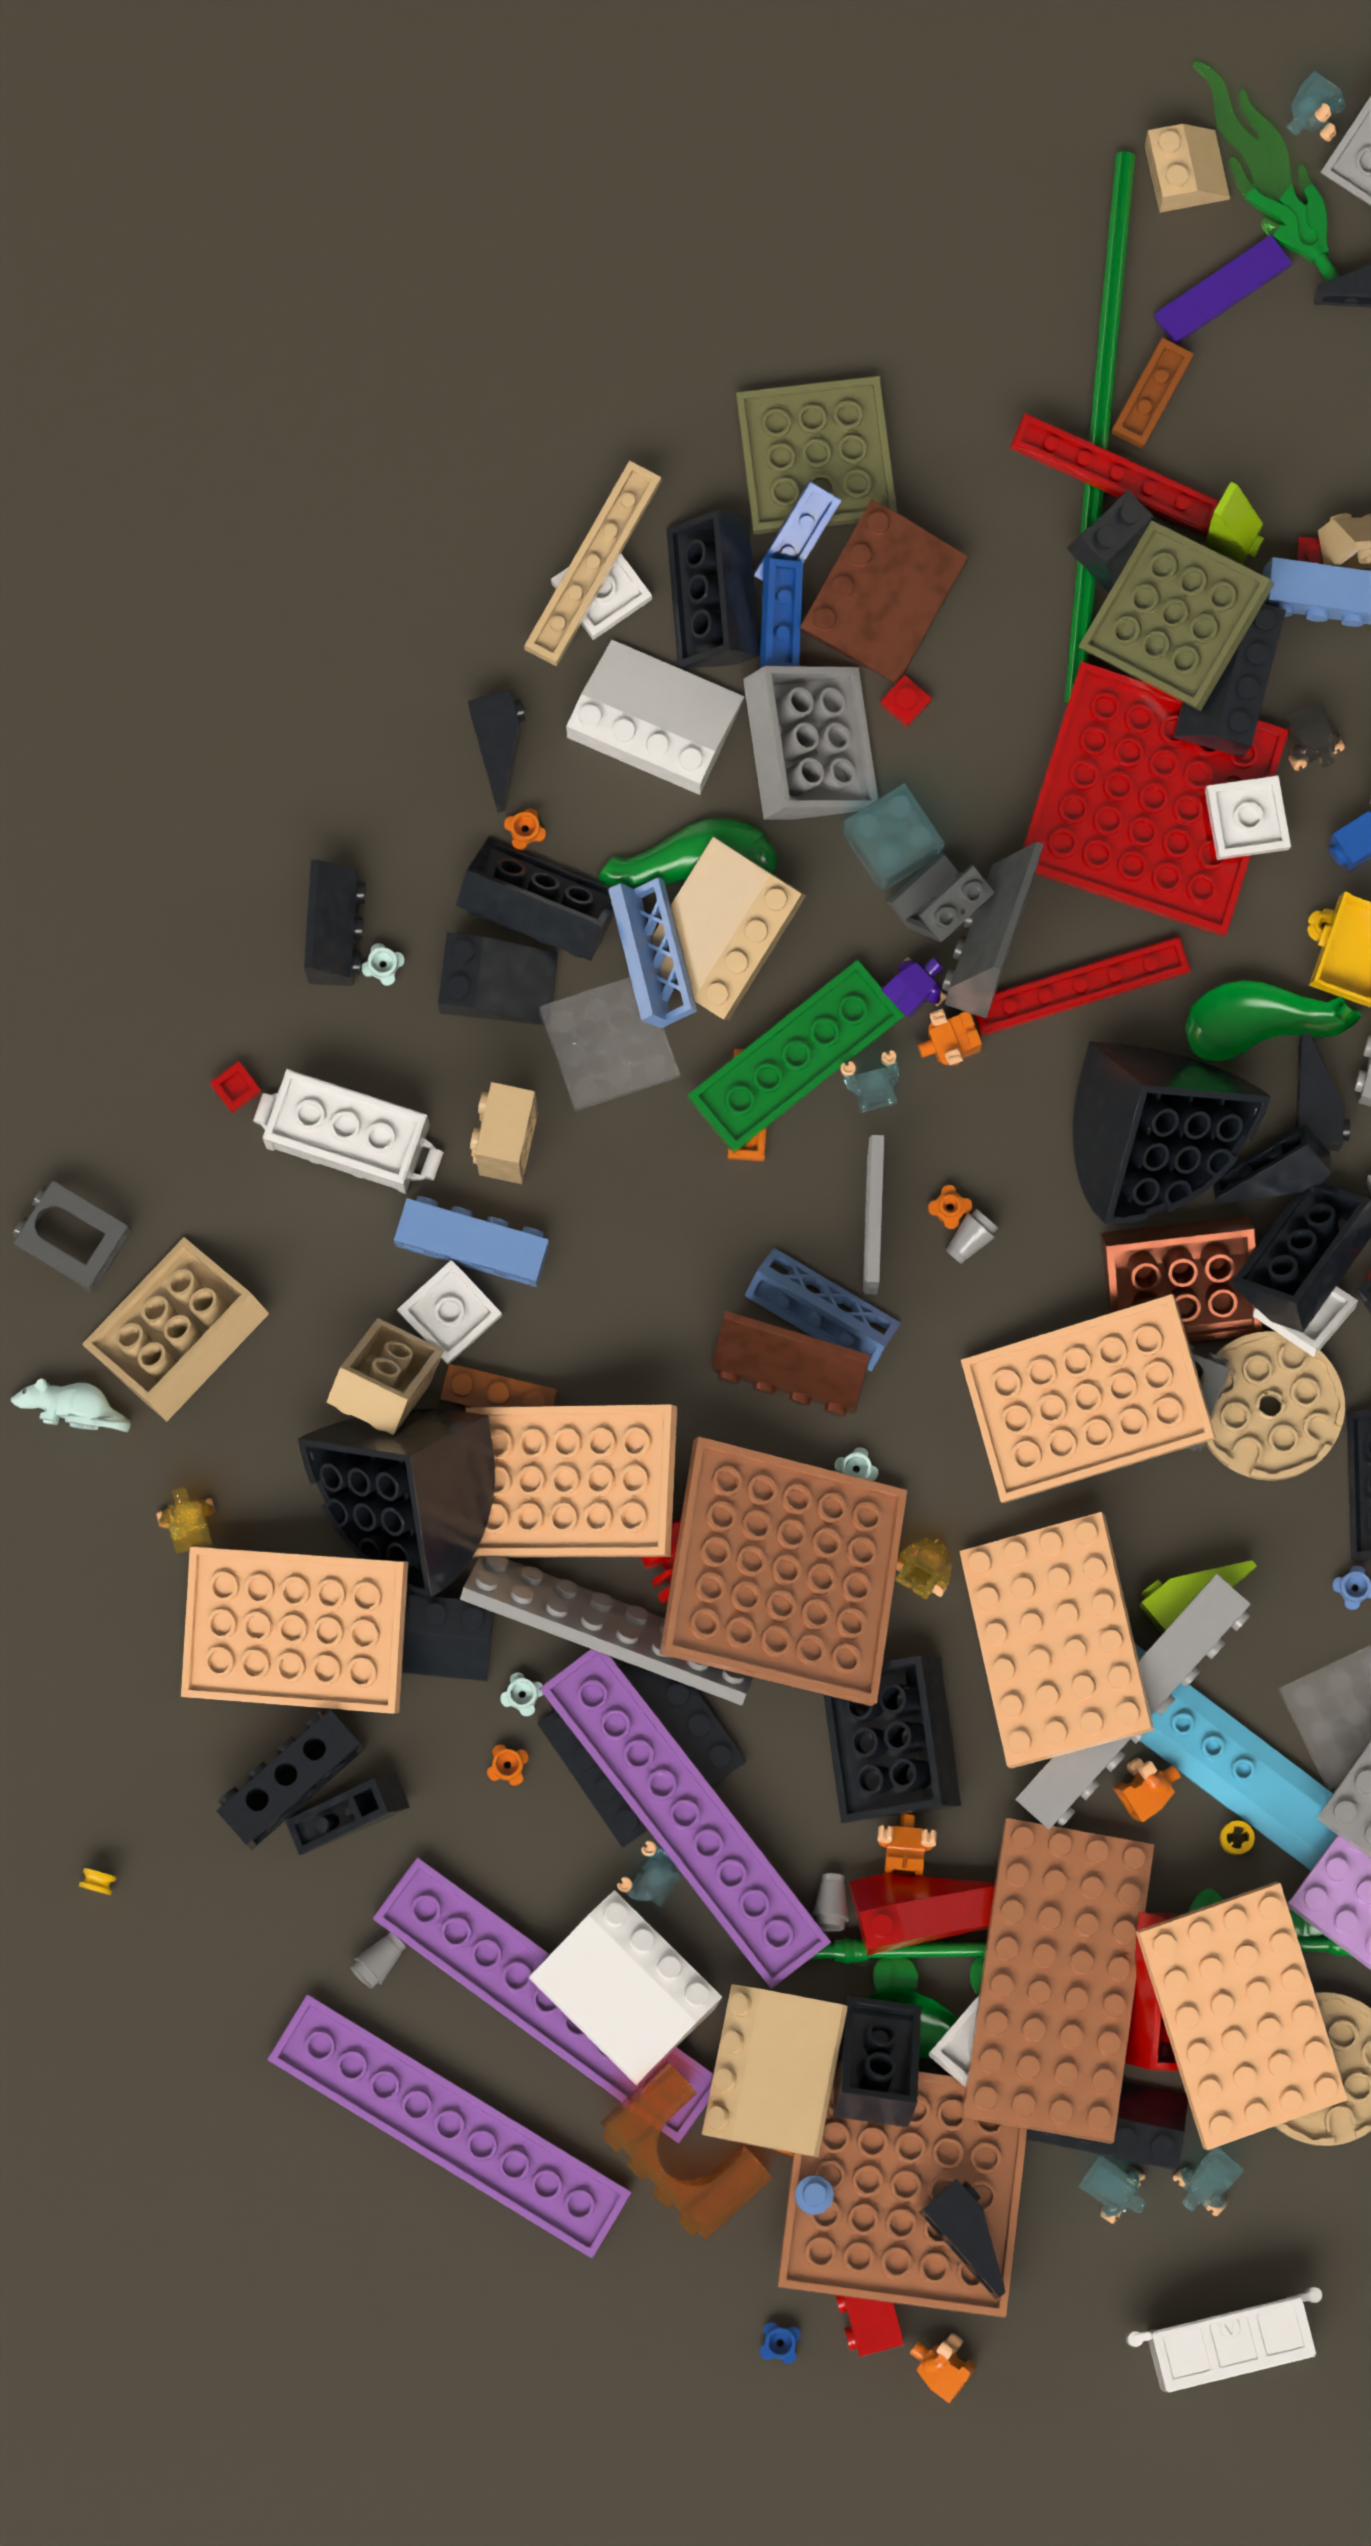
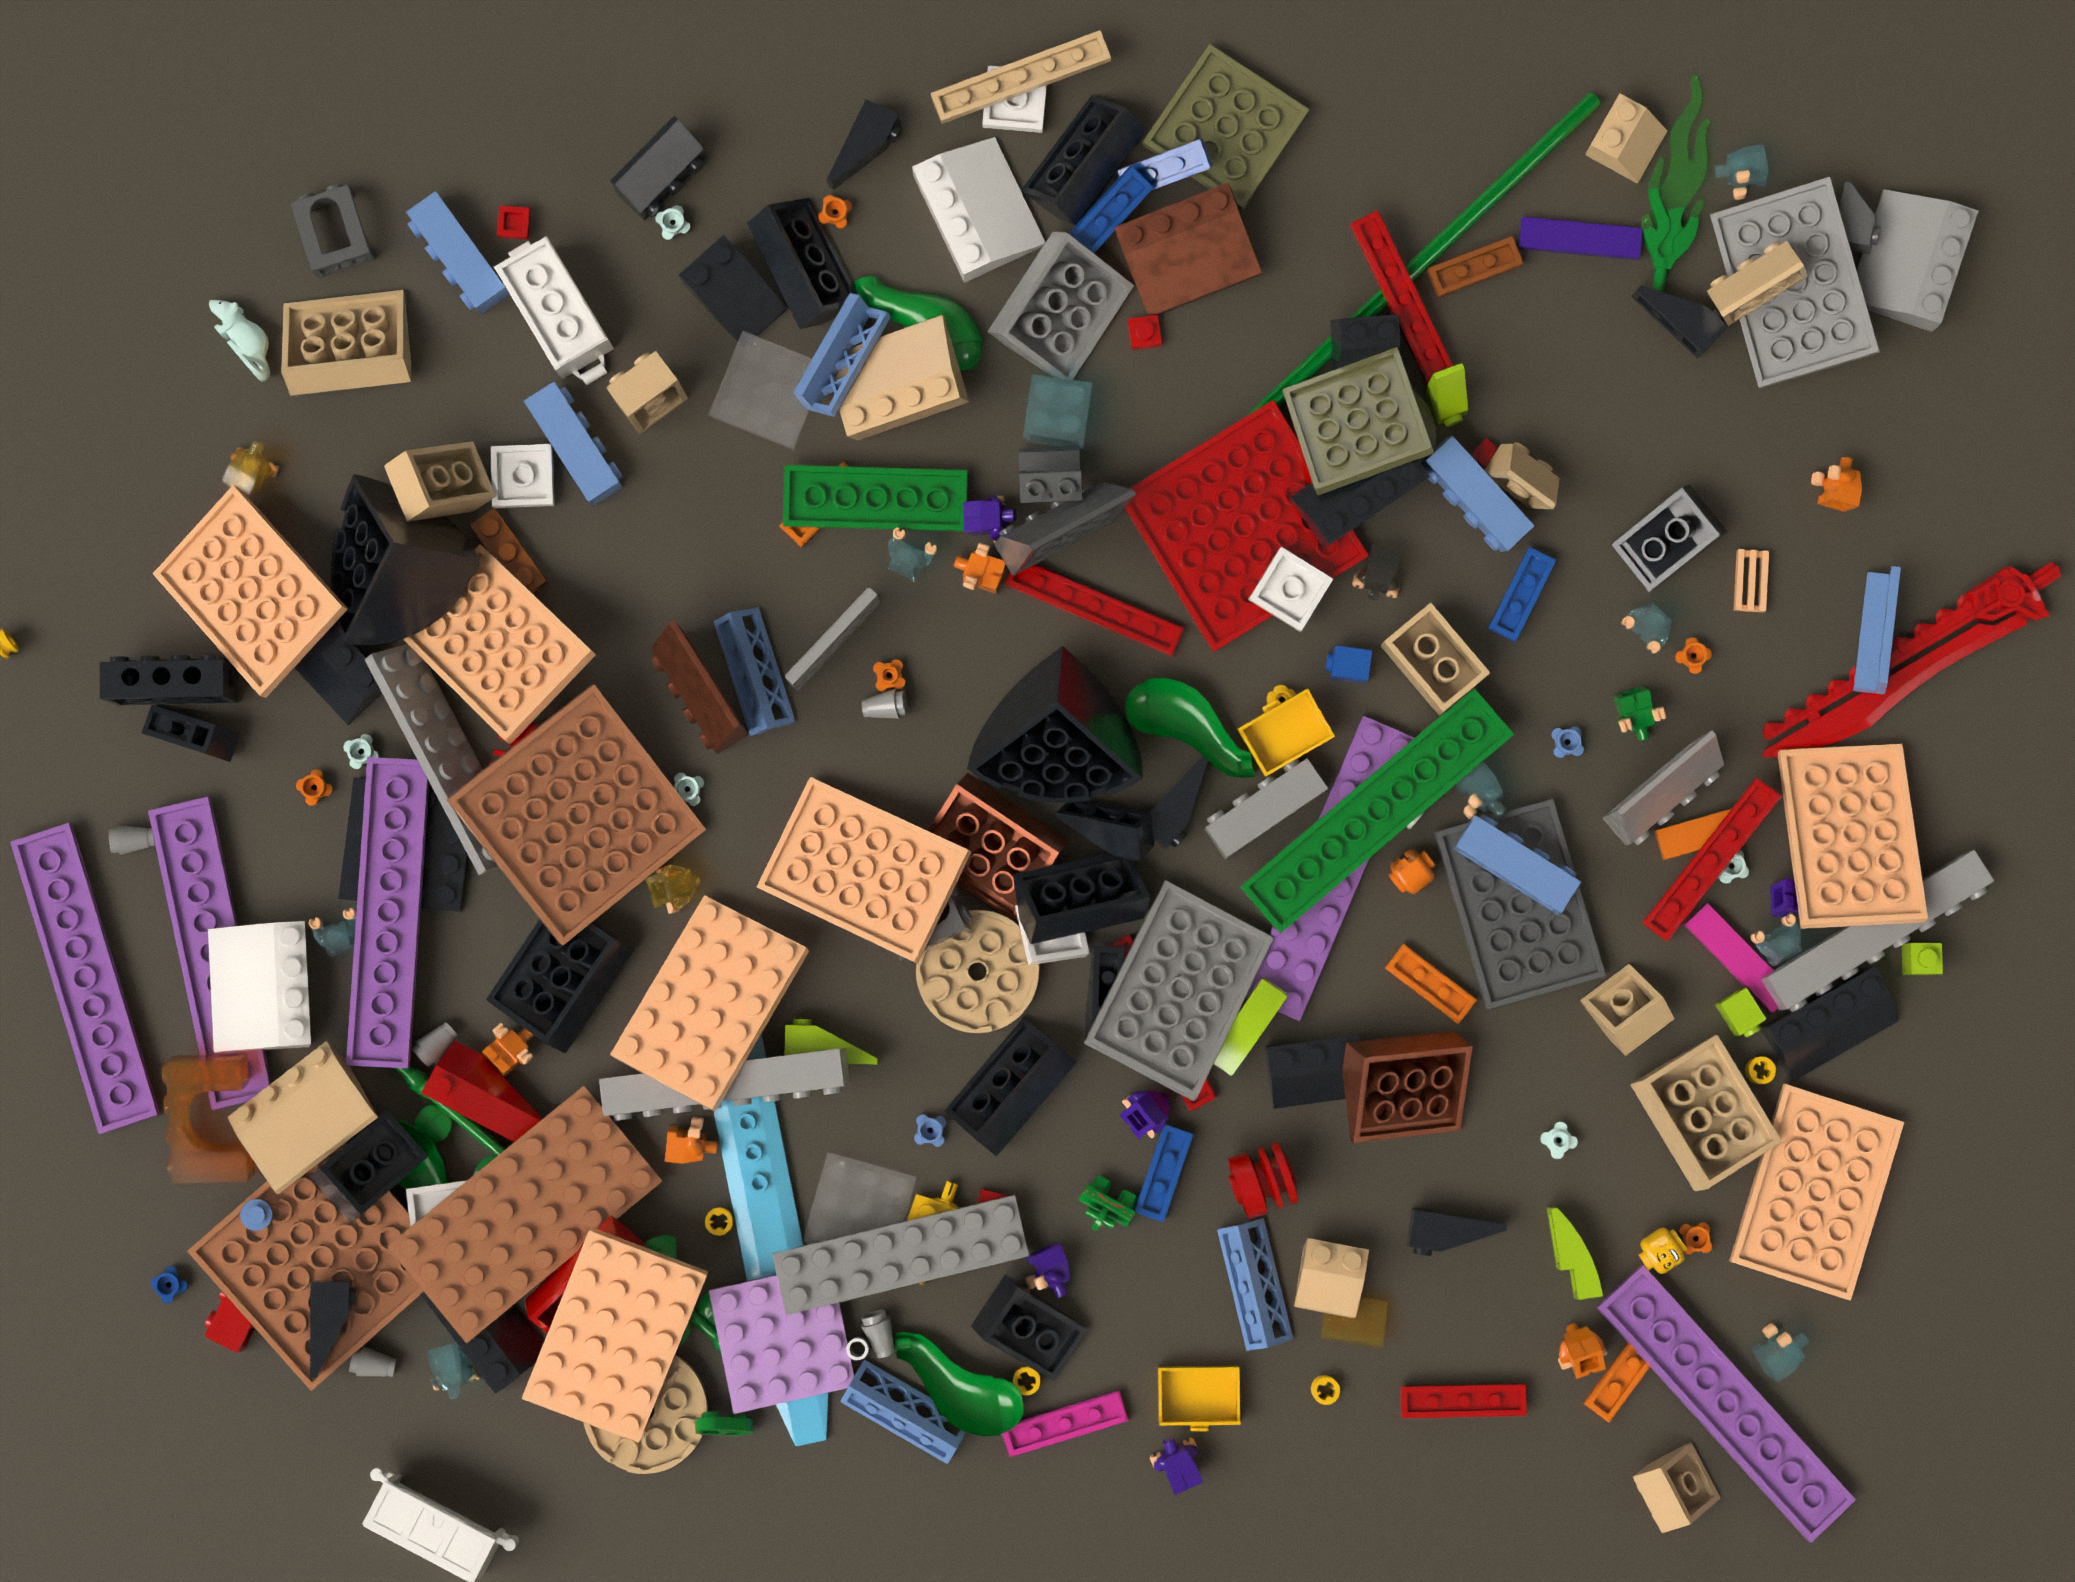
camera: 45 degrees right, 5 degrees up
(208, 1159) = (457, 252): none -> medium blue brick
(942, 2368) = (251, 1386): orange piece -> none
(1035, 2248) = (372, 1363): none -> light grey cone
(1208, 2181) = (511, 1417): clear light blue piece -> none

